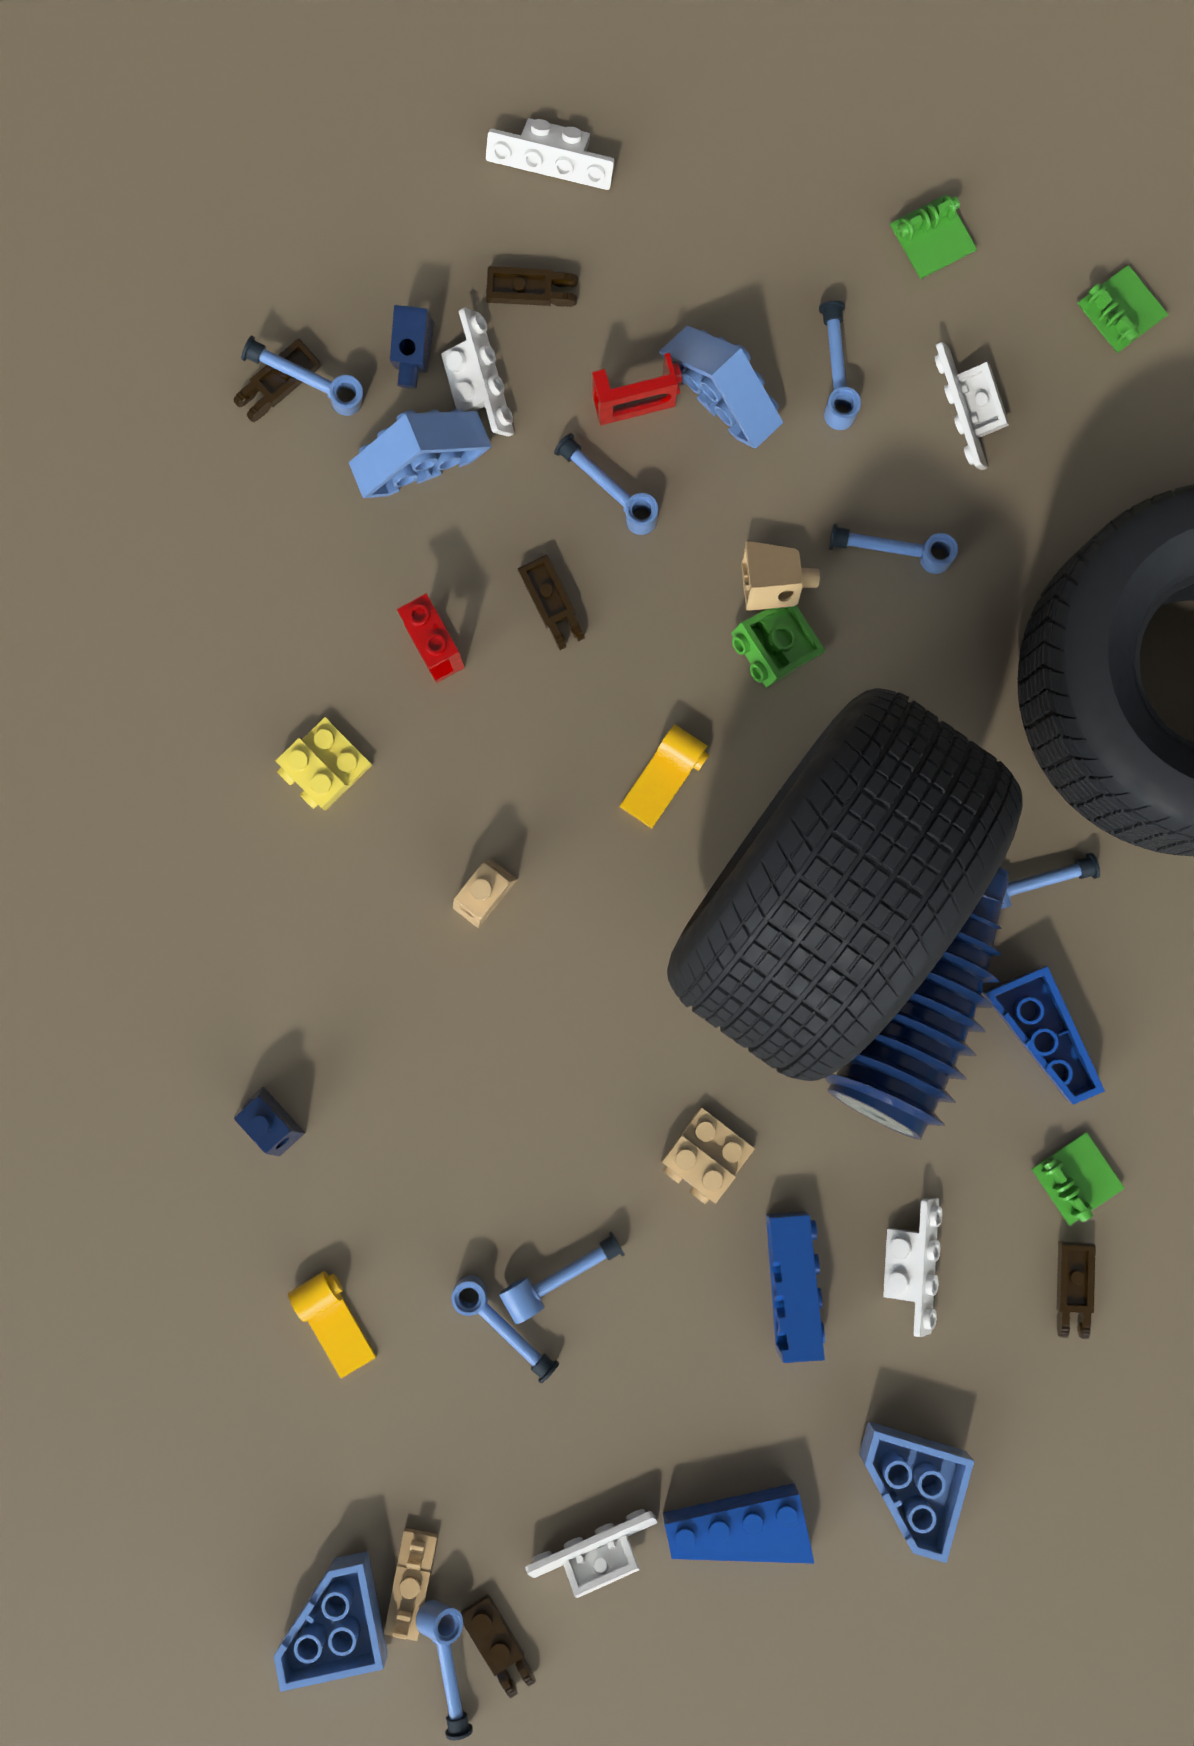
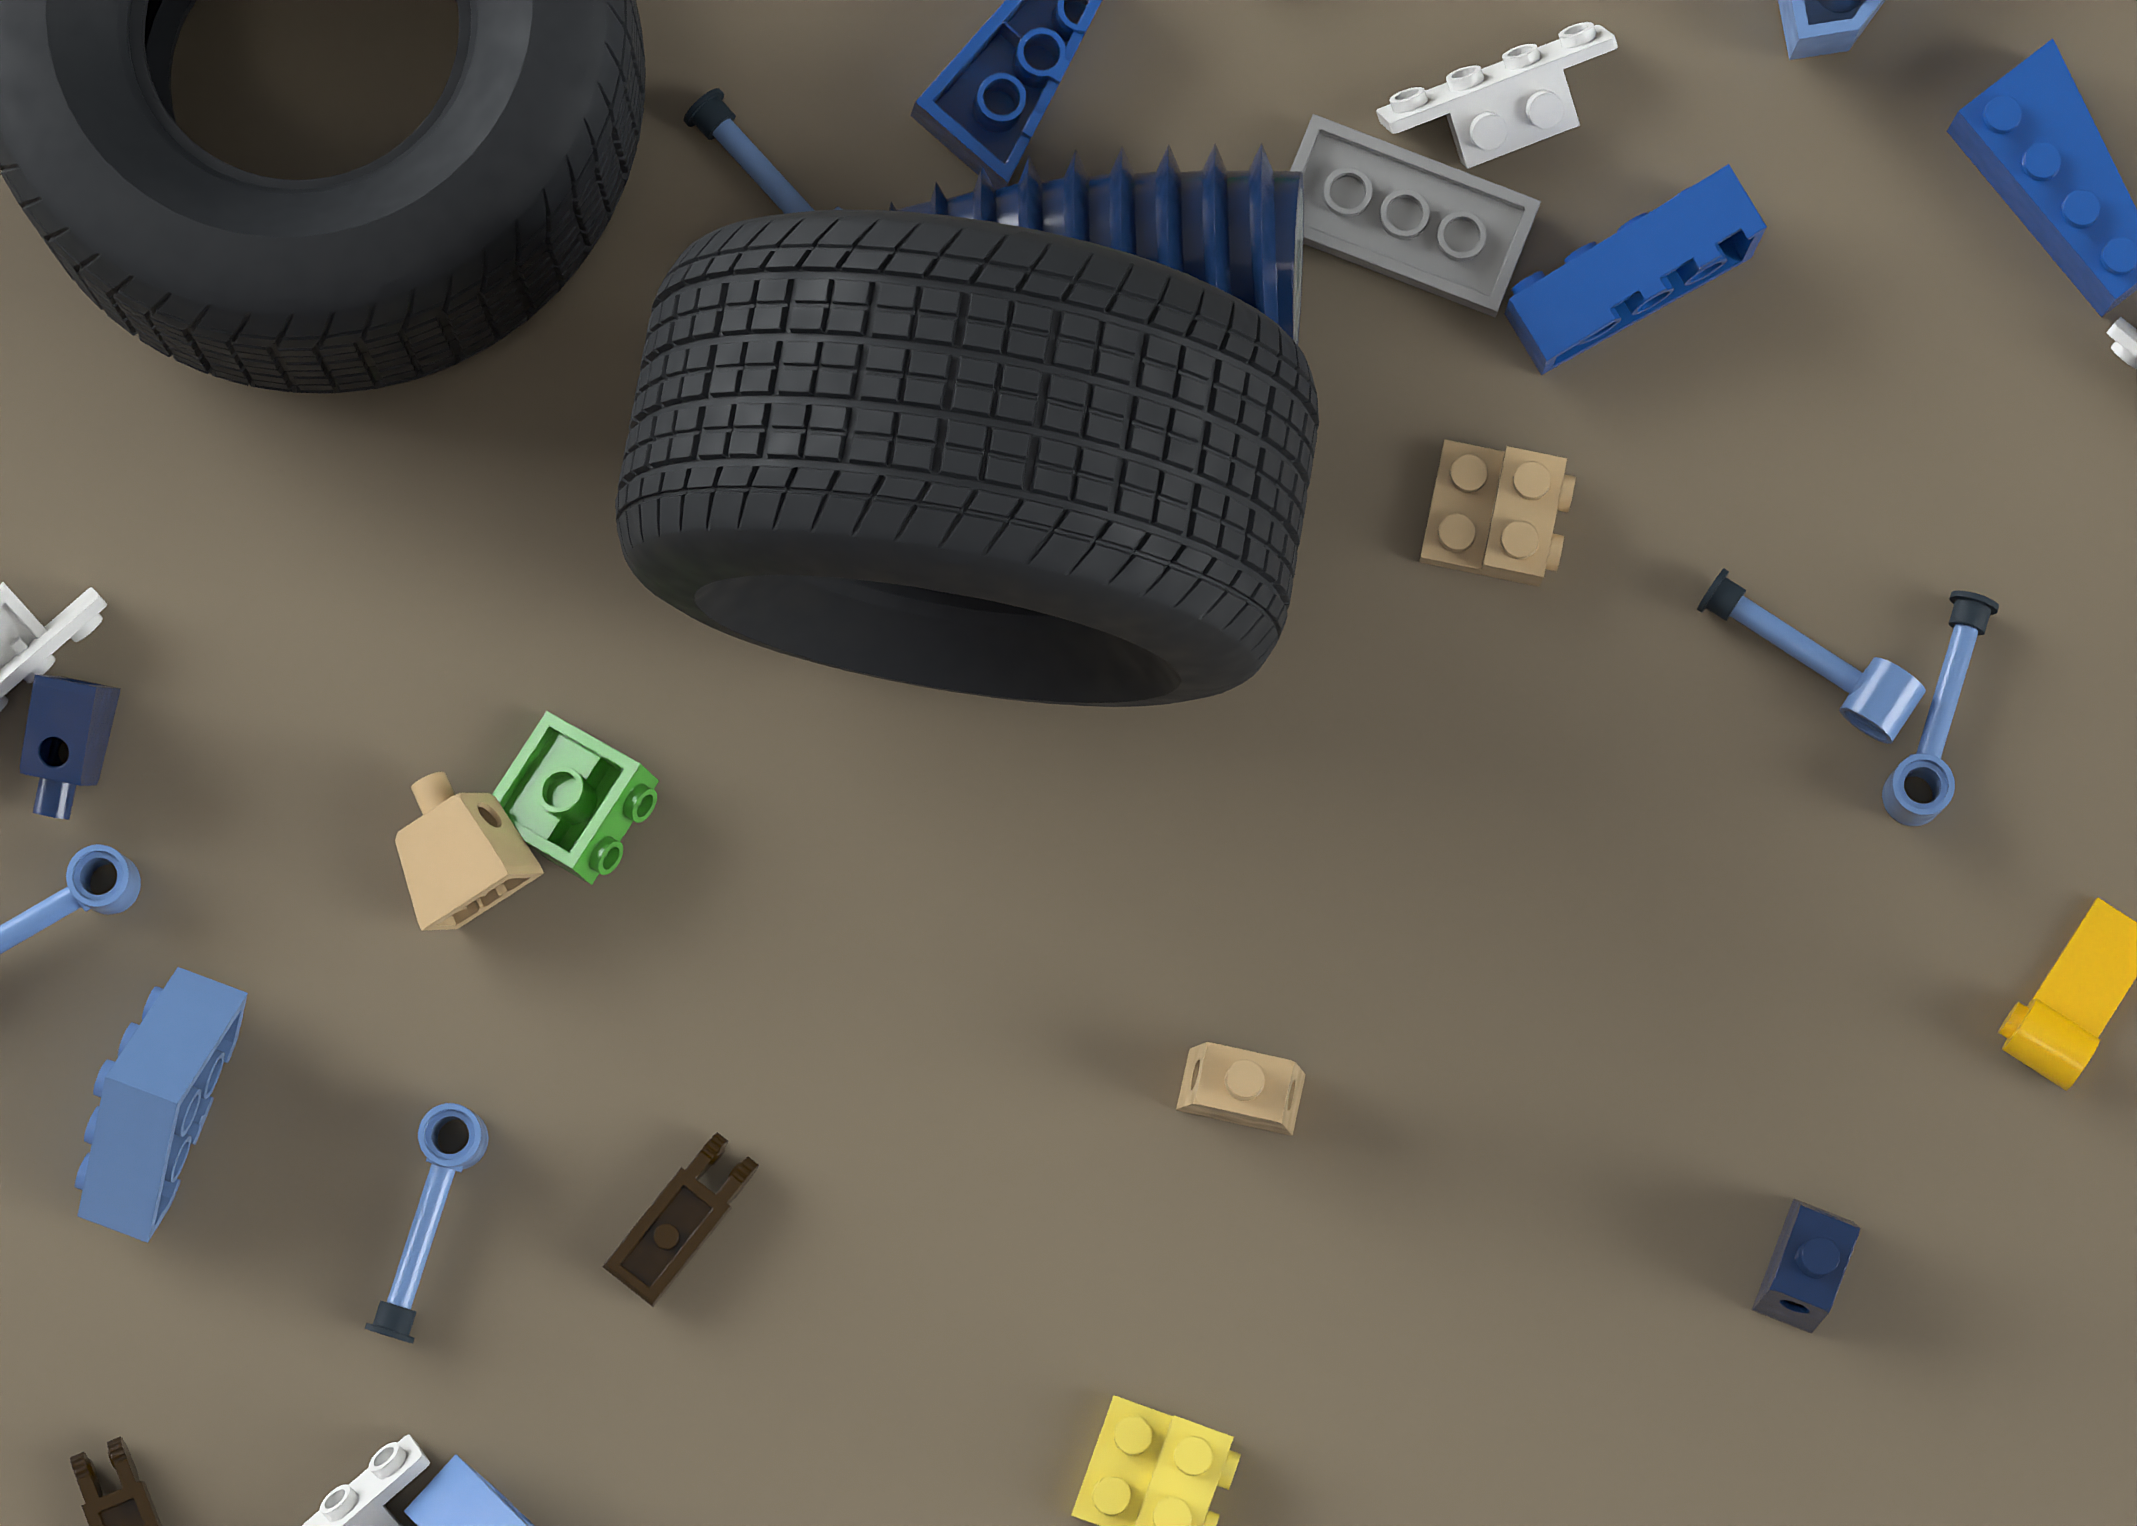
camera: 115 degrees left, 5 degrees down
(431, 638) = (852, 1384): red panel -> none
(606, 398) = (290, 1285): red panel -> none
(664, 775) = (890, 884): yellow door -> none
(842, 538) = (334, 773): medium blue piece -> none
(876, 1187) = (1411, 215): none -> light grey plate
(919, 419) = (82, 718): none -> dark blue torso

